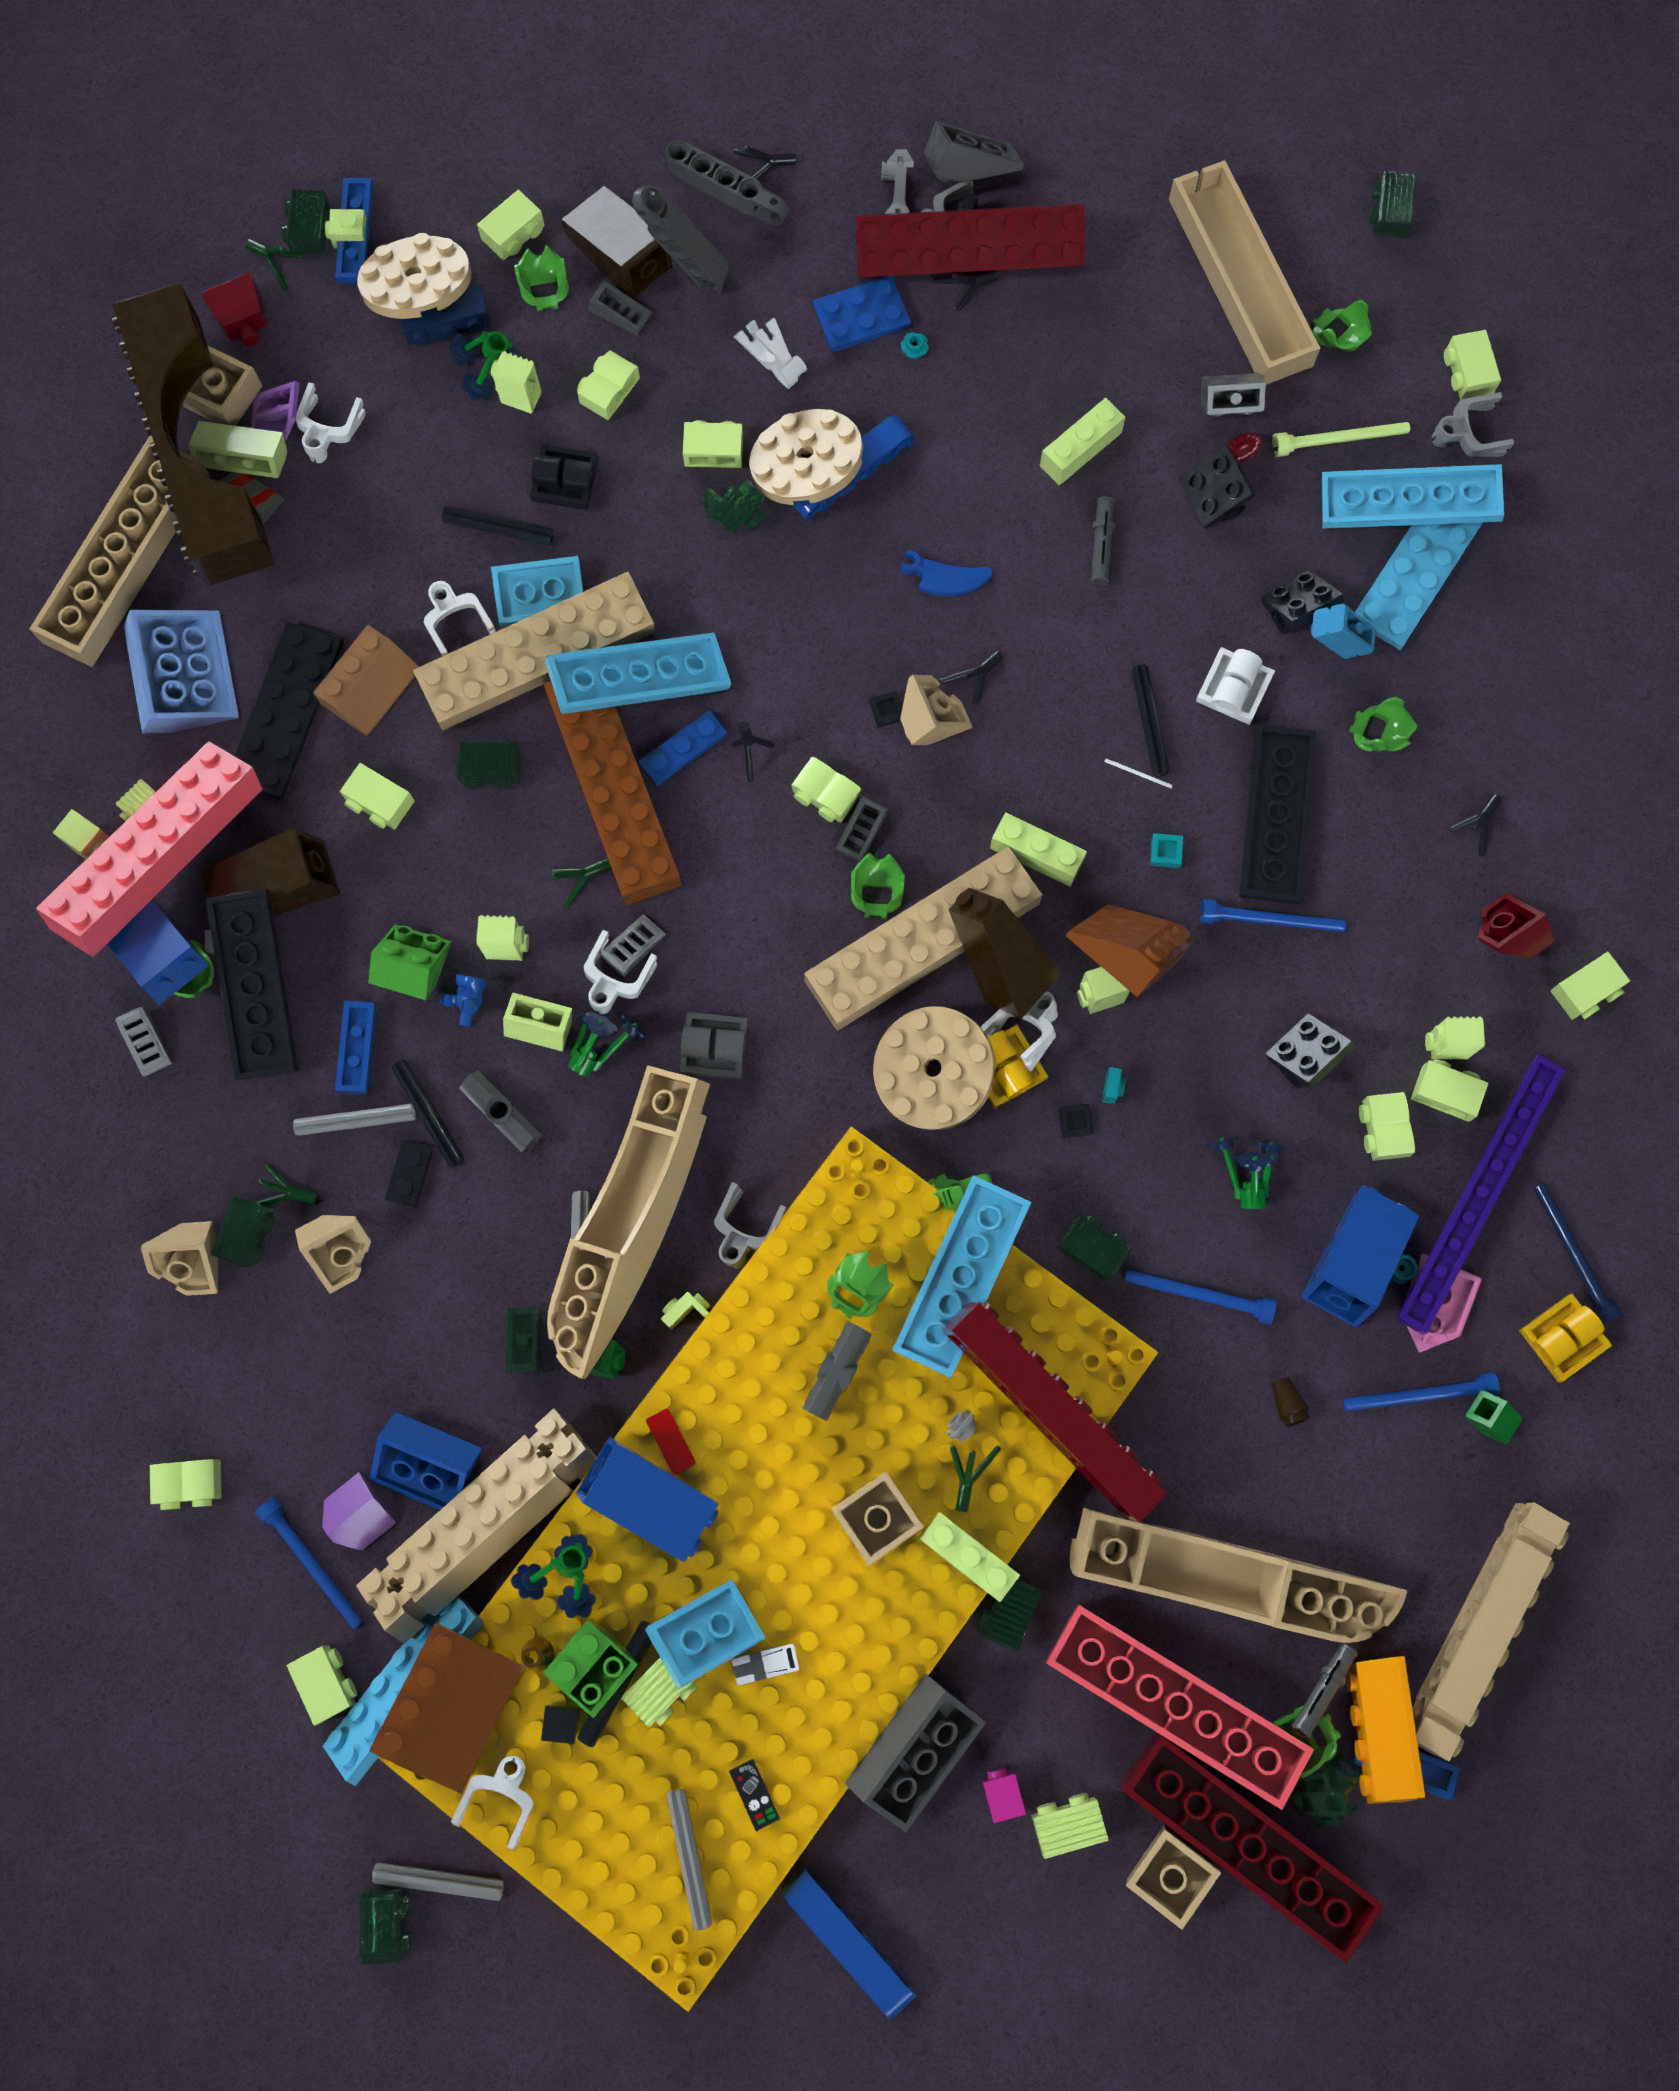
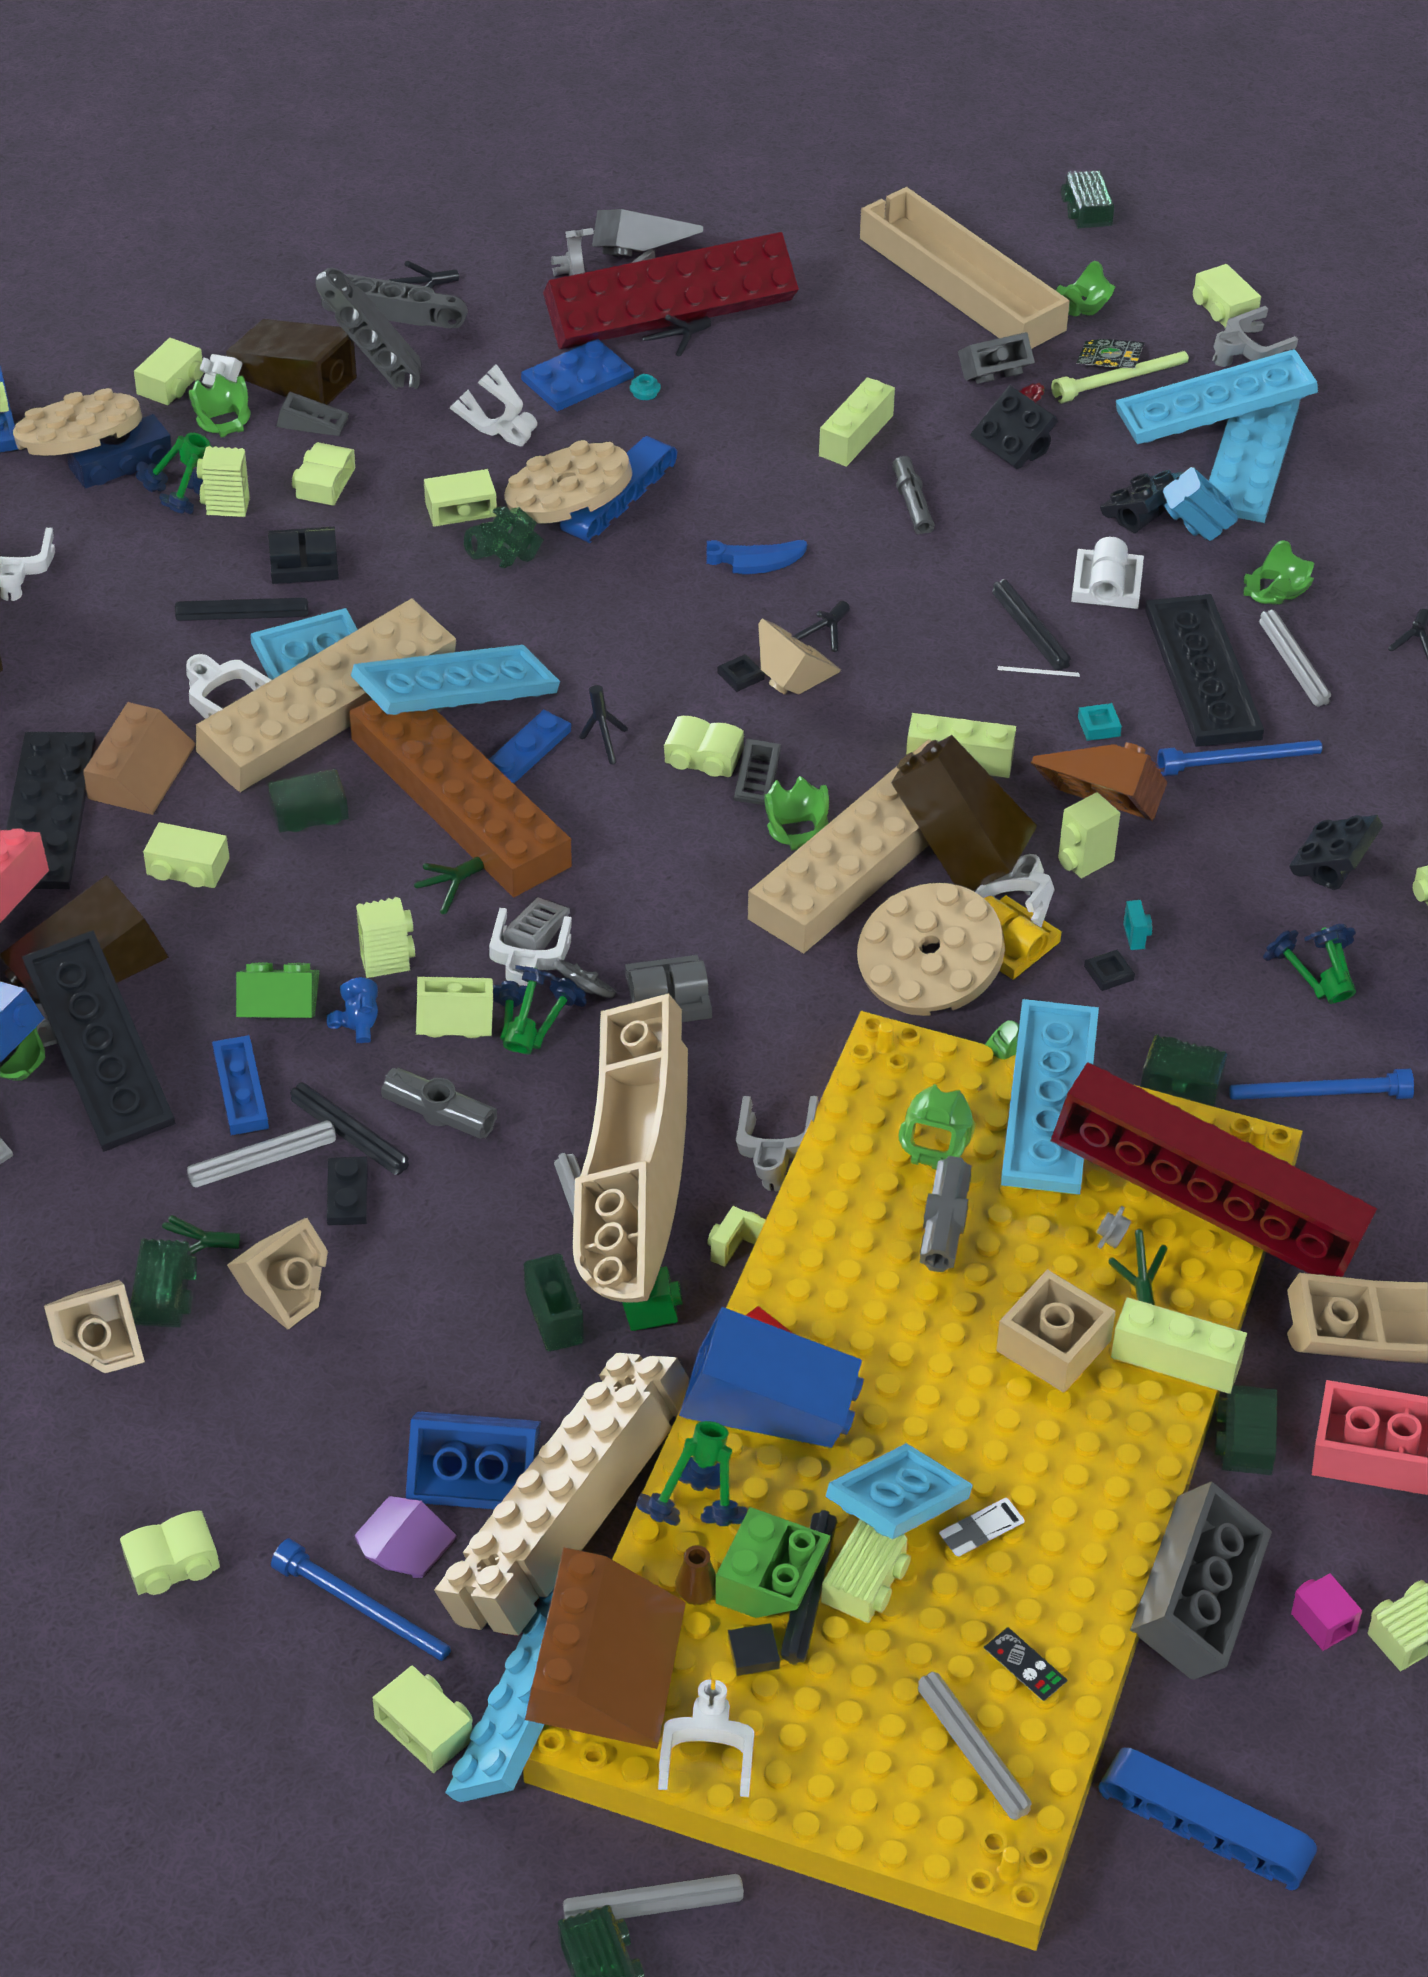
camera: 20 degrees left, 30 degrees down
(554, 236) = (218, 364): none -> white tile
(648, 1019) = (585, 980): none -> dark grey wheel
(1341, 407) = (1110, 353): none -> sticker
(1362, 821) = (1295, 658): none -> light grey axle

